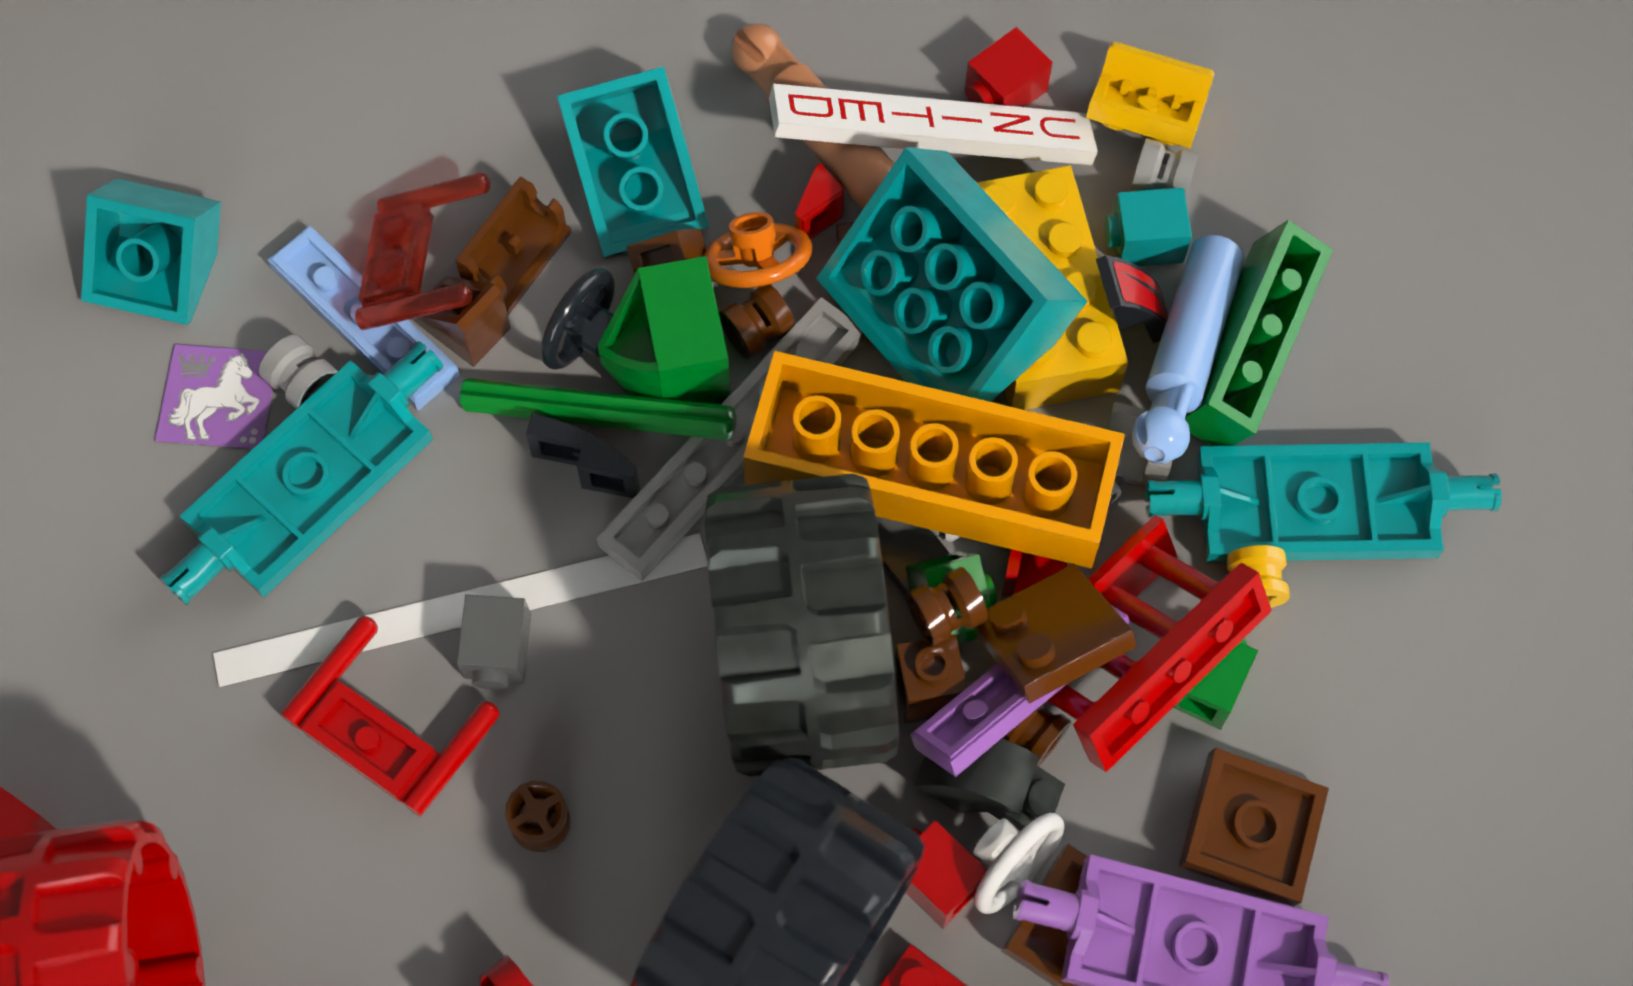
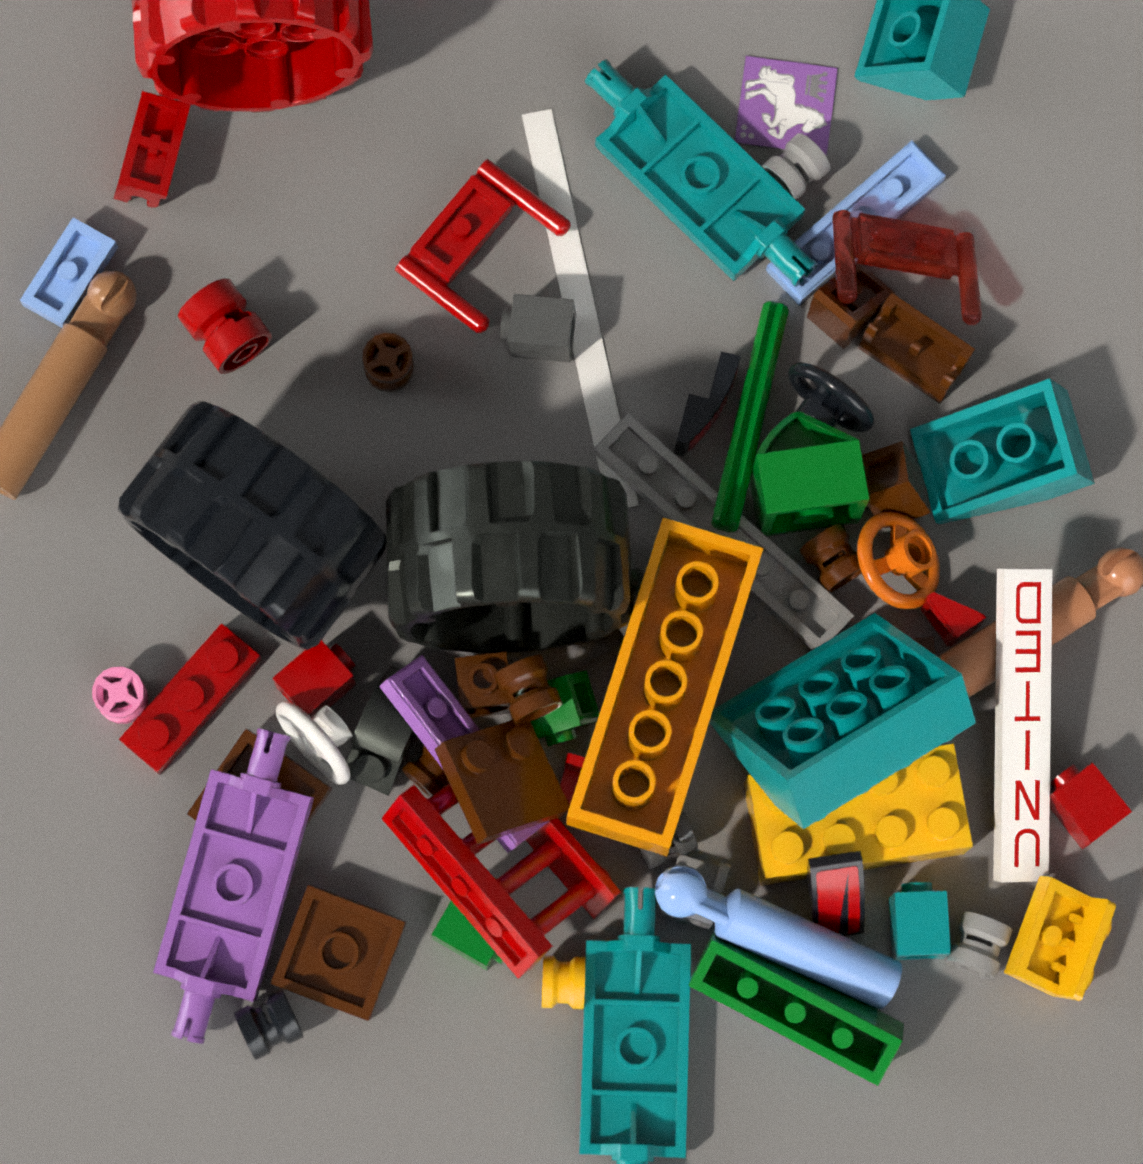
camera: 90 degrees right, 10 degrees up
(1358, 910) = (257, 1026): none -> black wheel

